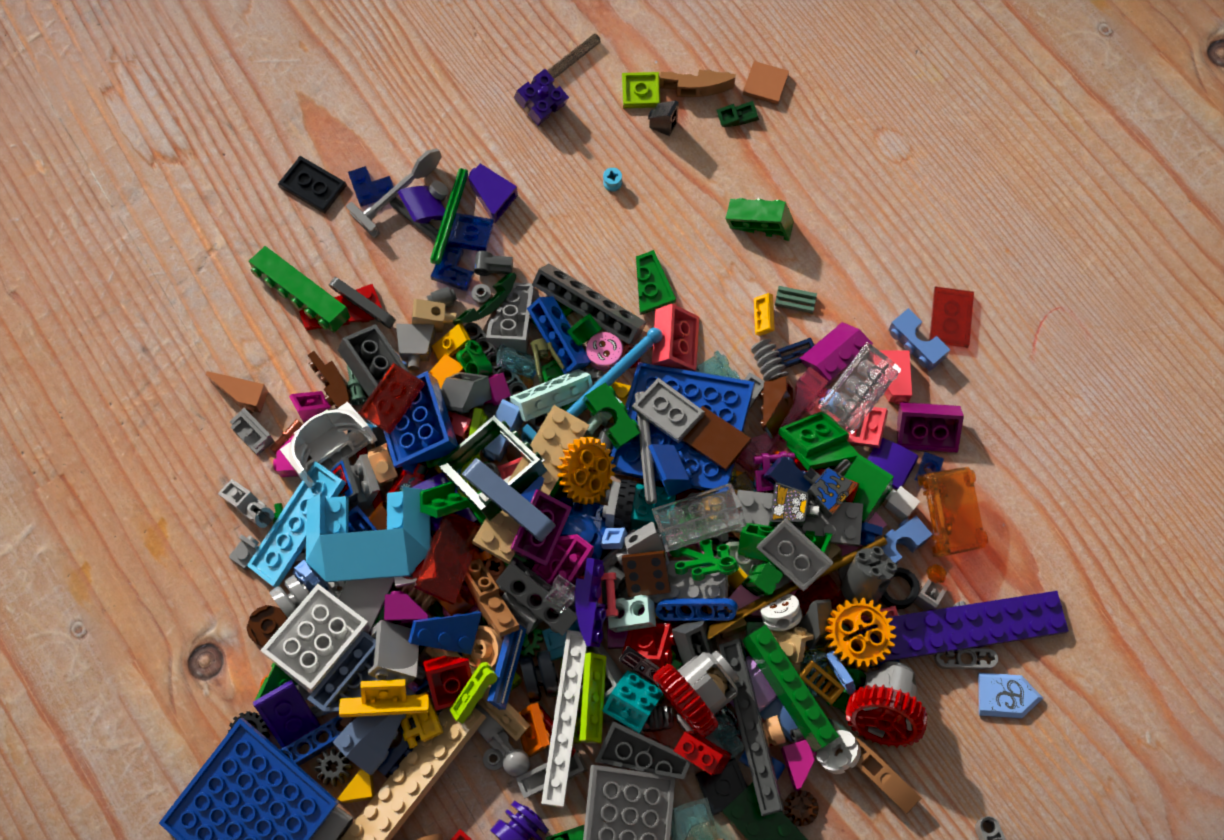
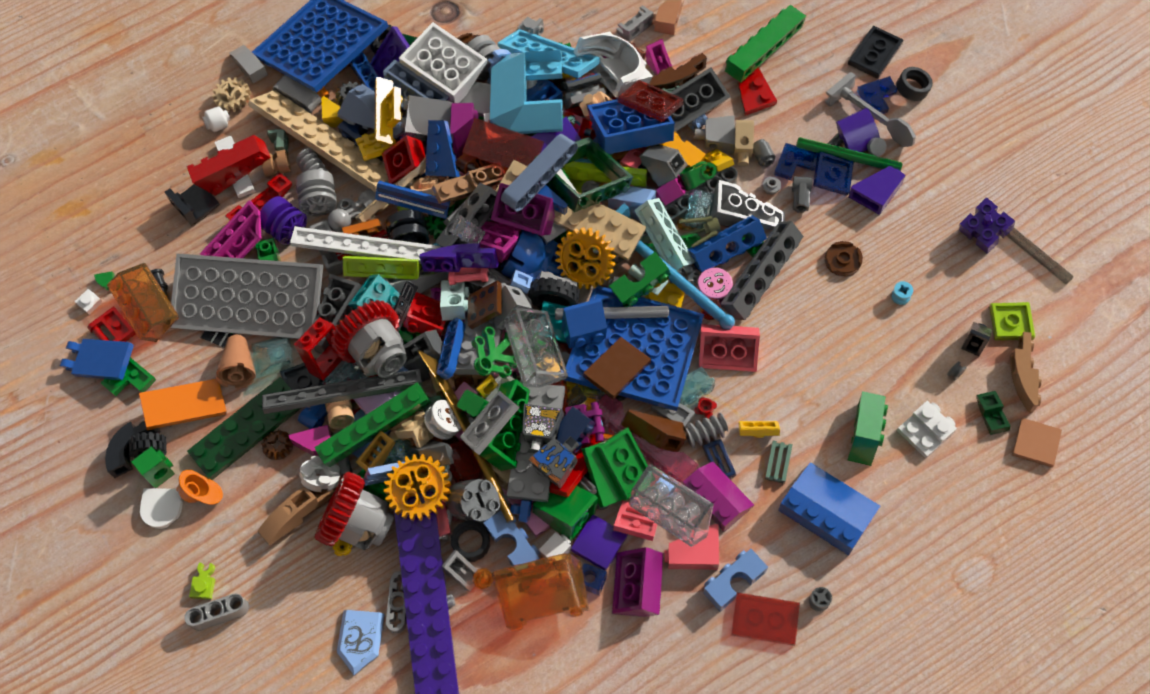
camera: 95 degrees right, 5 degrees down
(247, 504) = (568, 22): light grey plate -> none
(362, 302) = (753, 89): dark grey beam -> none
(365, 158) = (910, 92): none -> black tyre
(440, 804) = (309, 160): none -> light grey piece
(442, 500) = (547, 130): green bracket -> none
(473, 692) = (390, 174): lime plate -> none
(481, 791) = (316, 192): none -> light grey wheel
(502, 287) = (742, 171): dark green slope -> none
(570, 230) = (843, 258): none -> reddish brown tile
(584, 330) = (732, 263): green panel -> none
(653, 285) = (786, 329): green wing -> none
(668, 410) = (646, 328): light grey tile -> none
(697, 139) = (956, 371): none -> dark grey bush
(740, 358) = (711, 405): none -> red plate
(757, 169) = (927, 429): none -> white plate
(841, 256) = (828, 508): none -> blue slope
(930, 264) = (819, 595): none -> dark grey wheel

